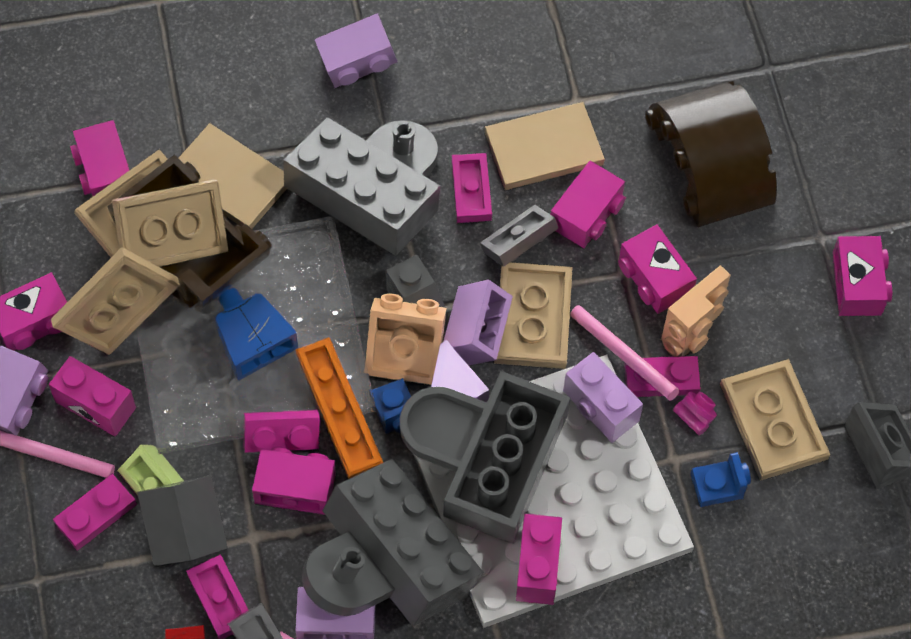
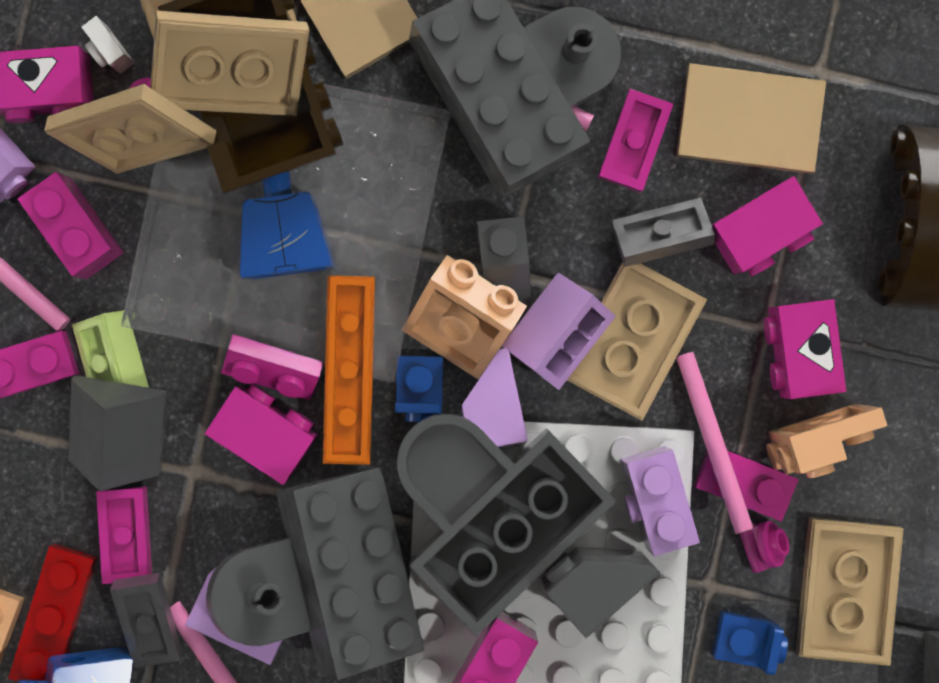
camera: 25 degrees right, 25 degrees up
(69, 270) = (105, 46): none -> white plate
(580, 463) = (596, 583): none -> dark grey slope

